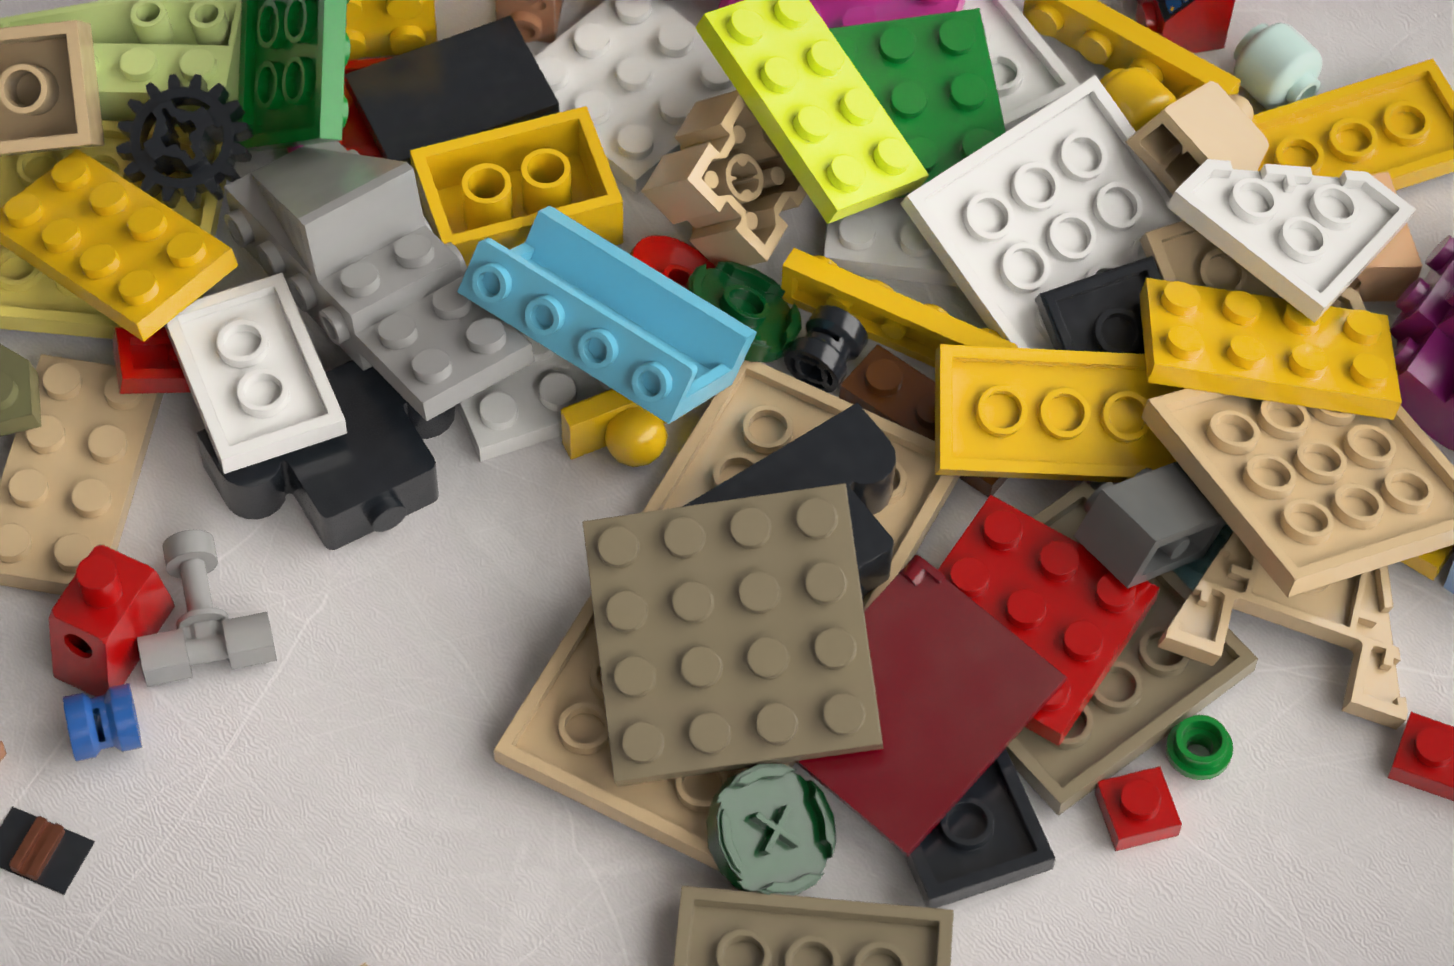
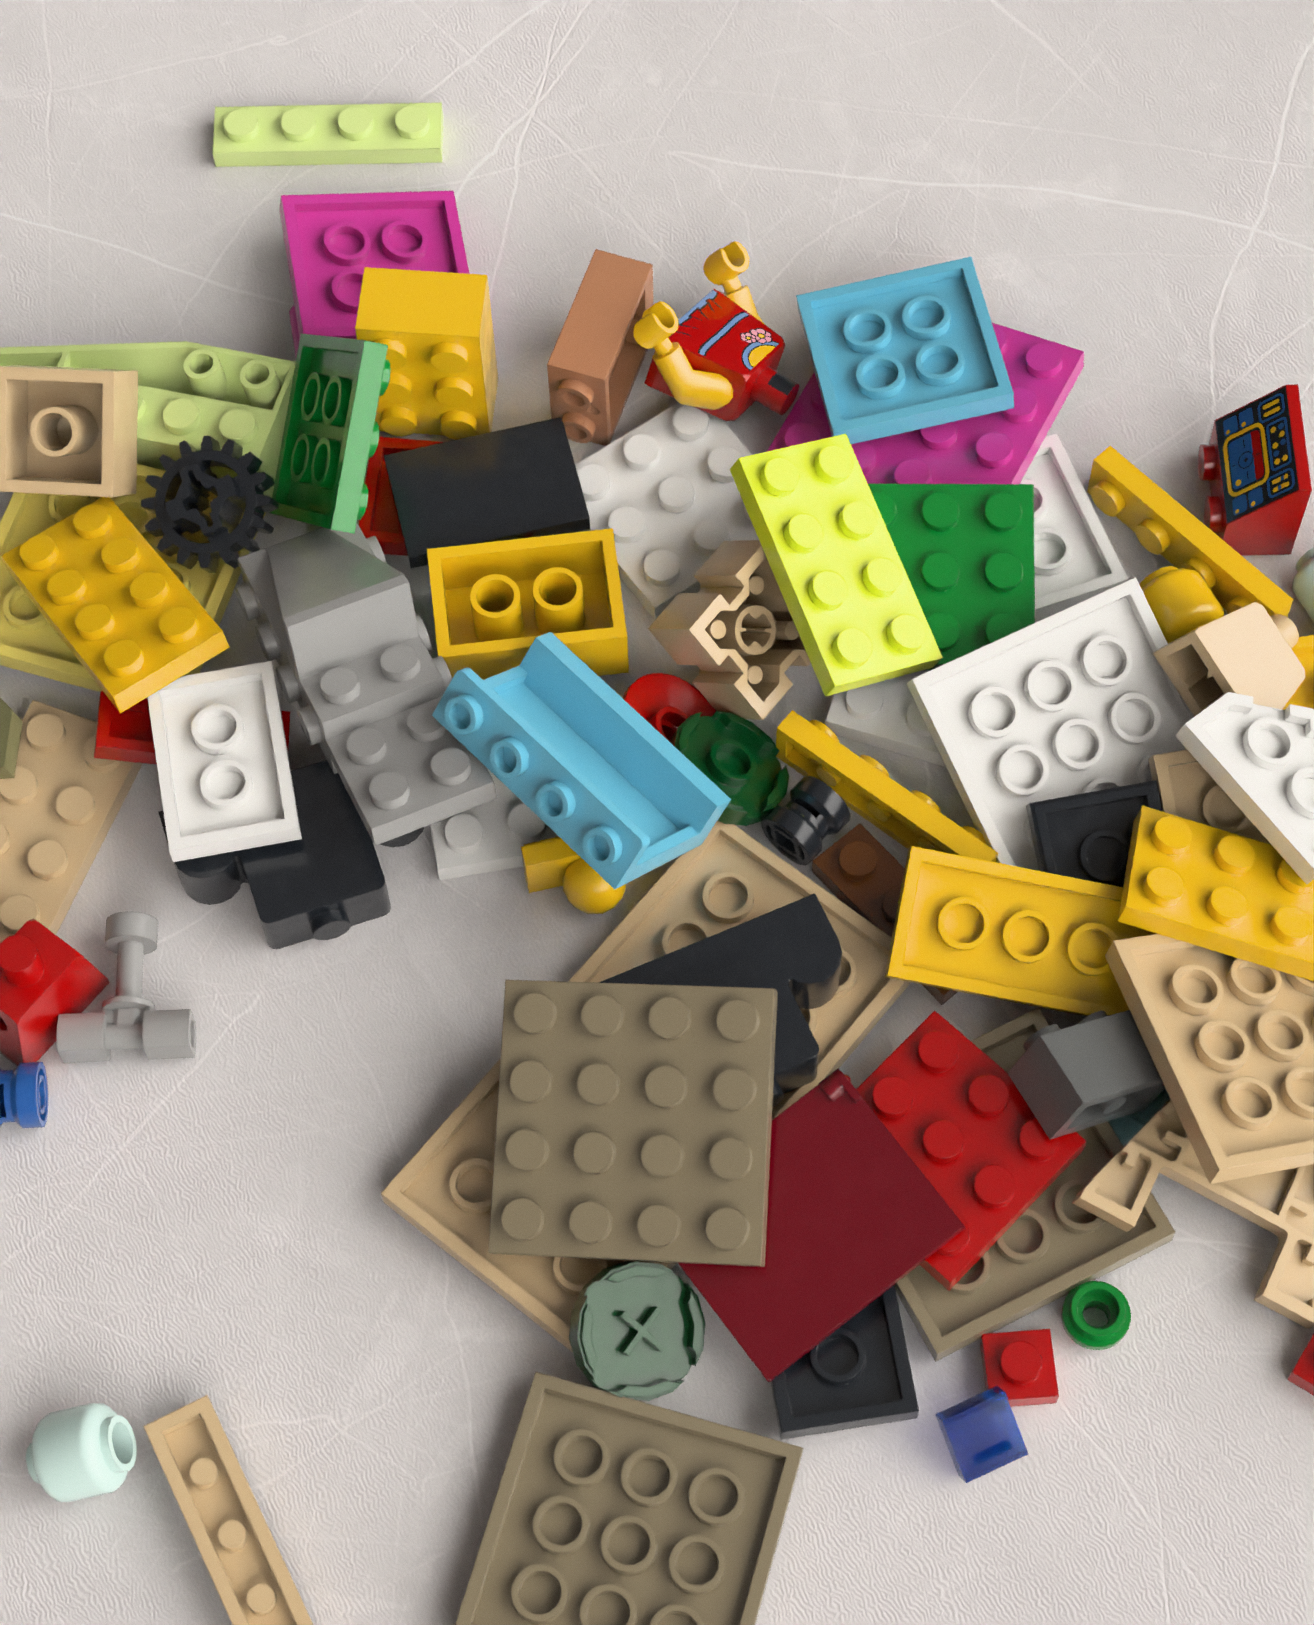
camera: 15 degrees right, 5 degrees up
(1117, 870) = (981, 1434): none -> clear blue tile

